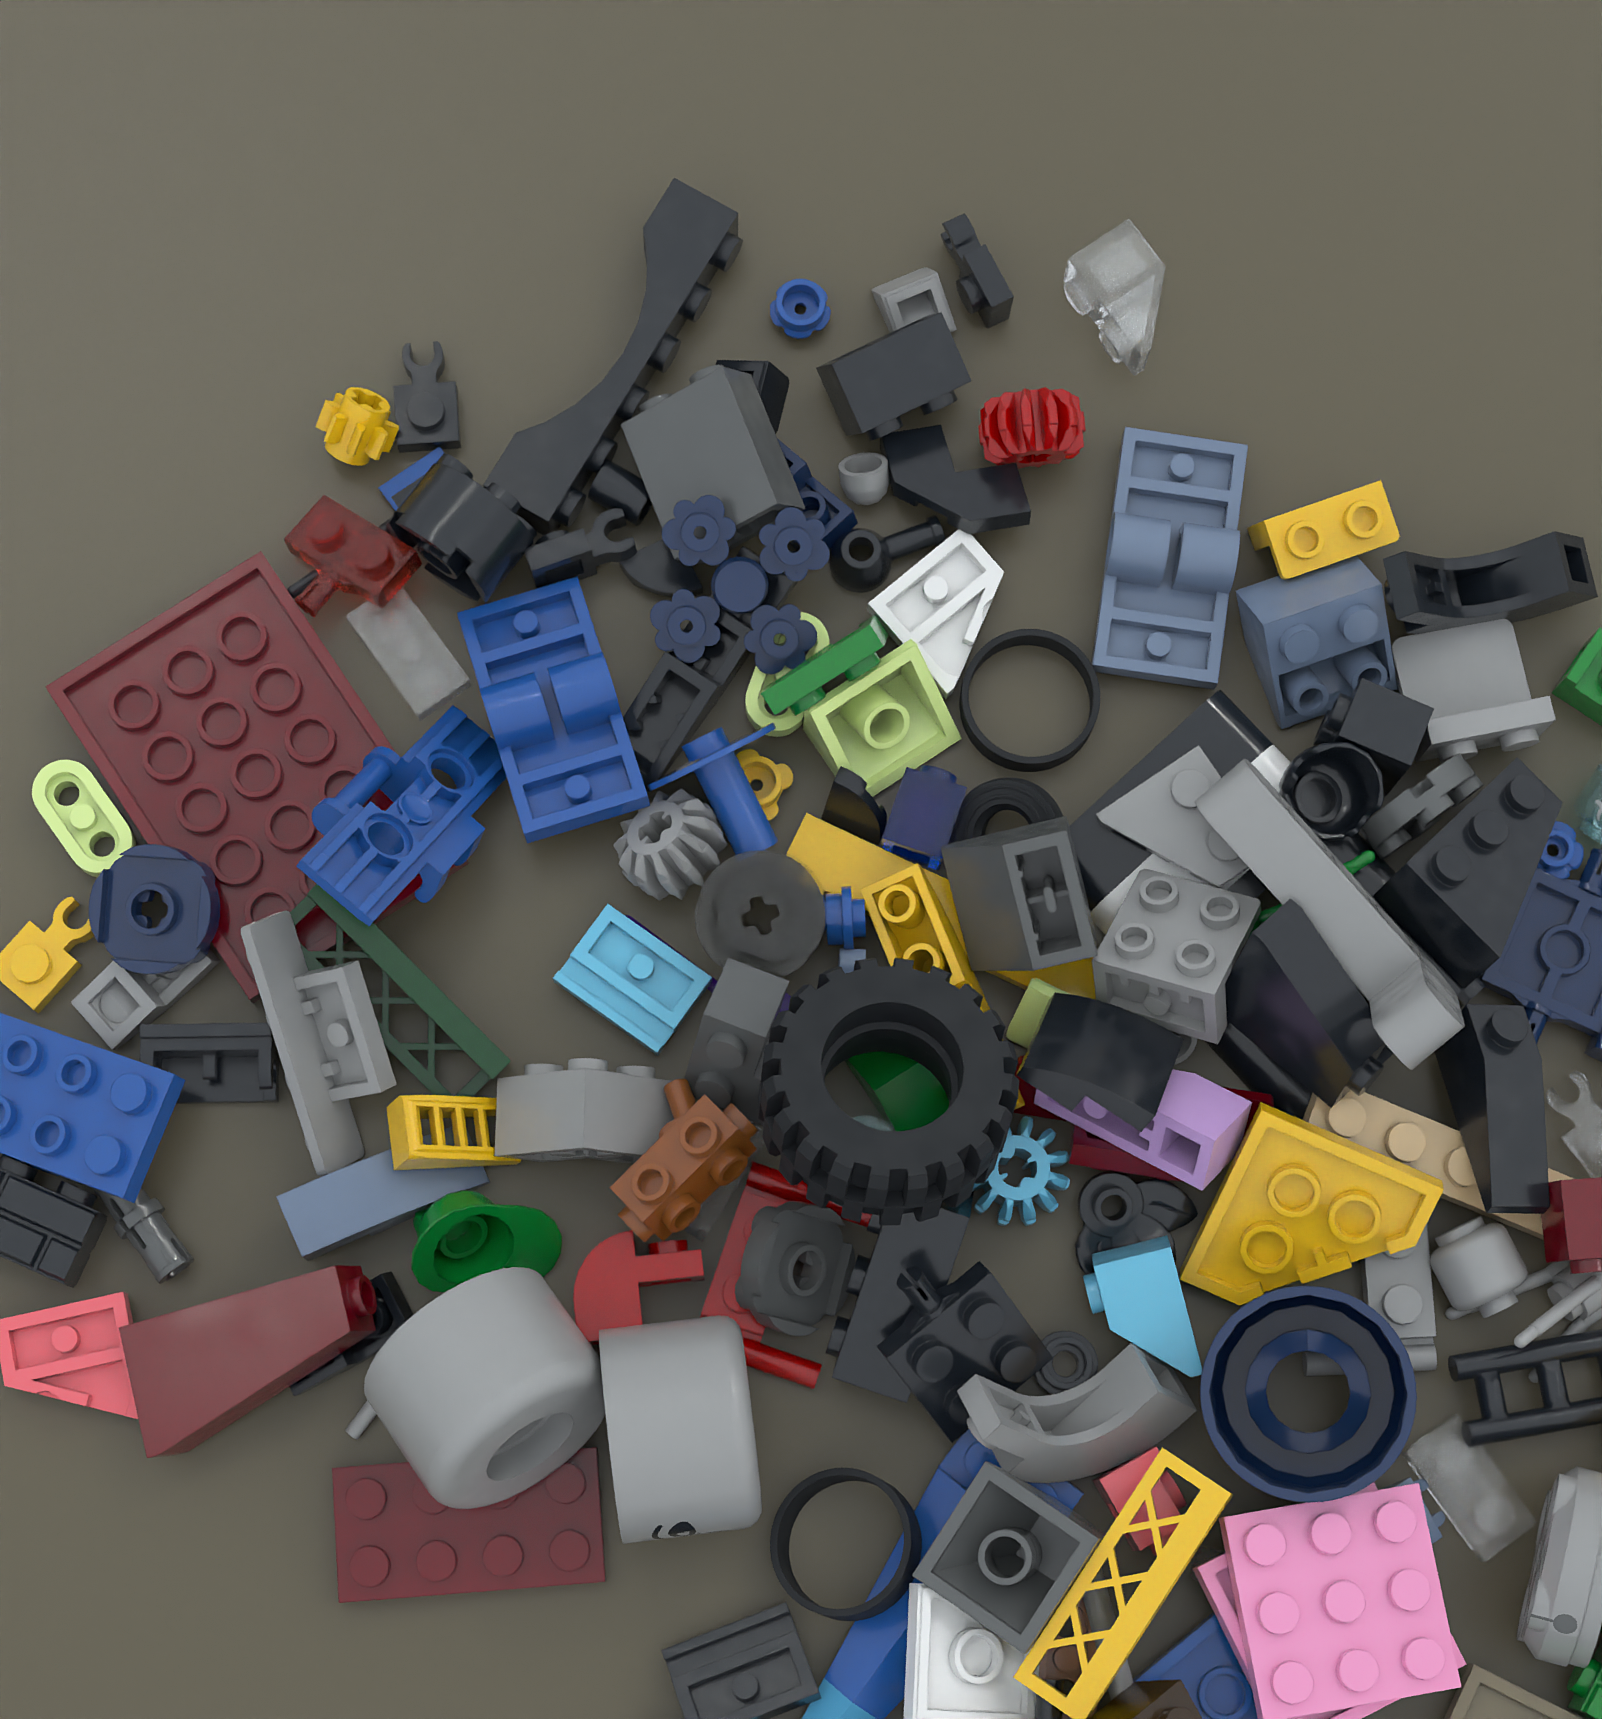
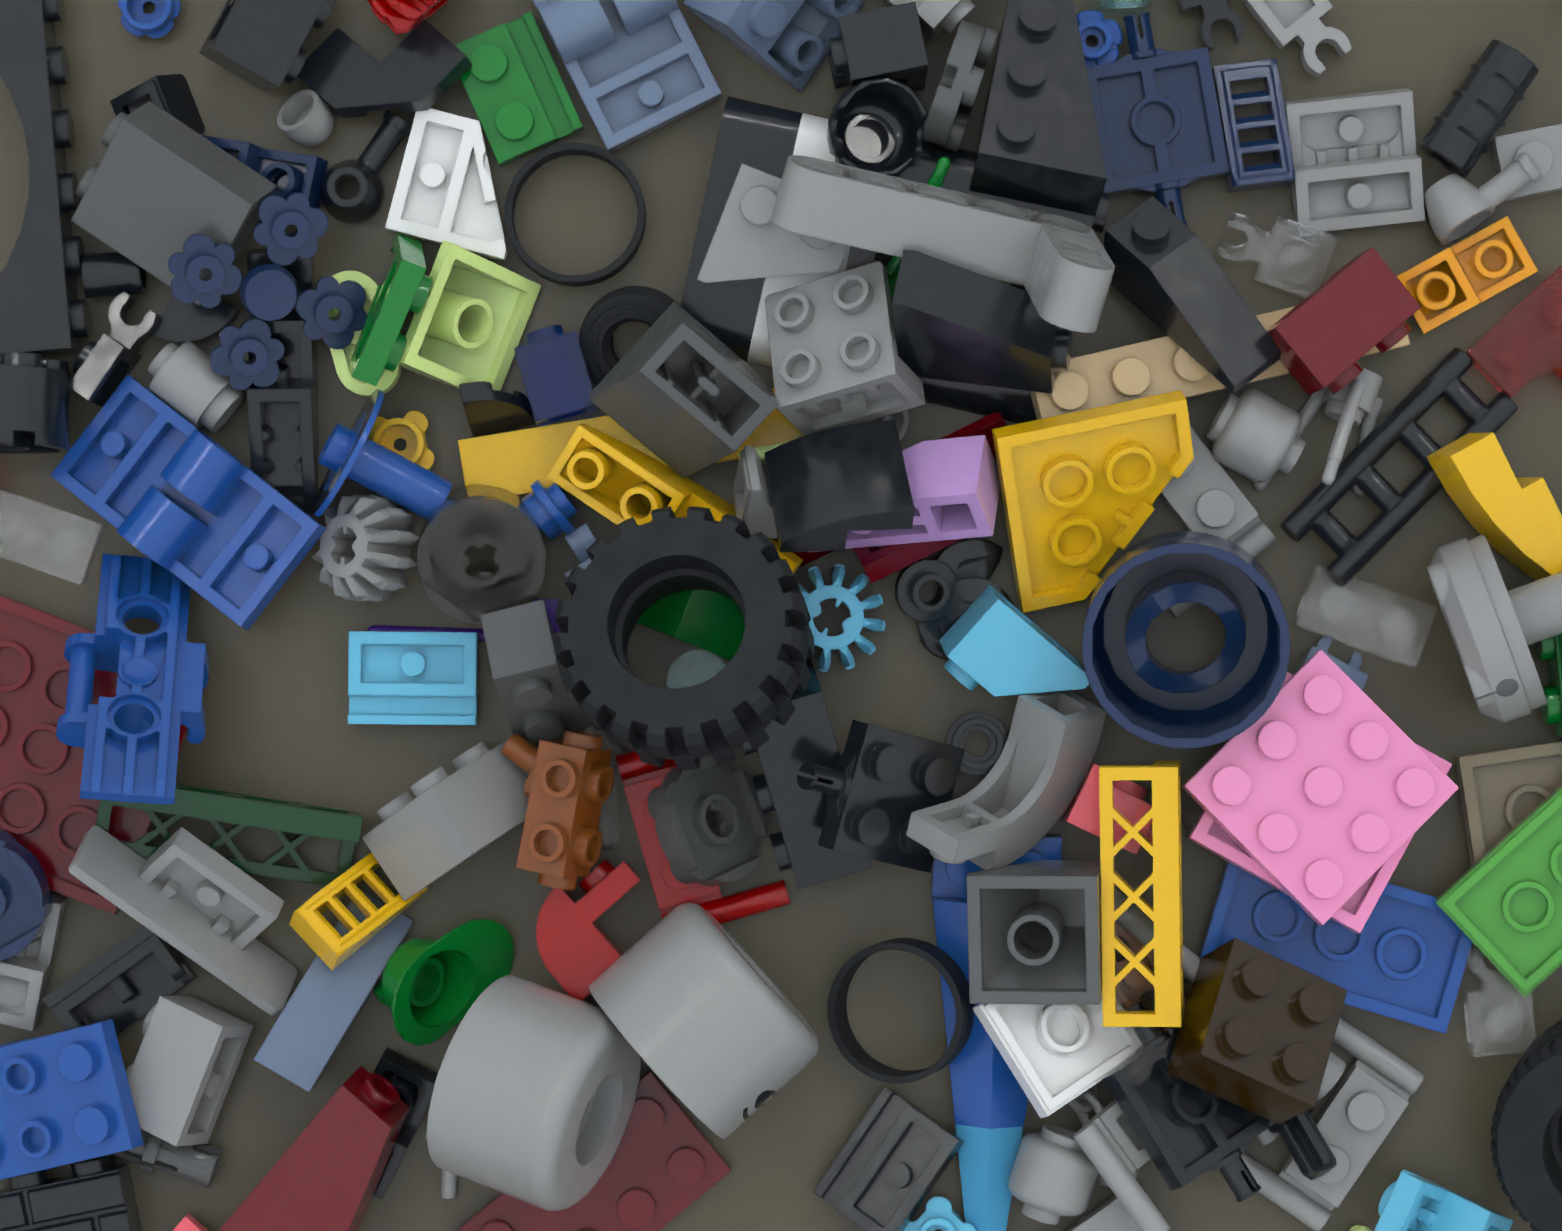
camera: 30 degrees left, 10 degrees up
(213, 1167) = (185, 1068): none -> light grey brick
(623, 622) = (192, 387): none -> light grey brick
(1024, 1015) = (752, 494): none -> light grey slope
(1050, 571) = (517, 90): none -> green plate

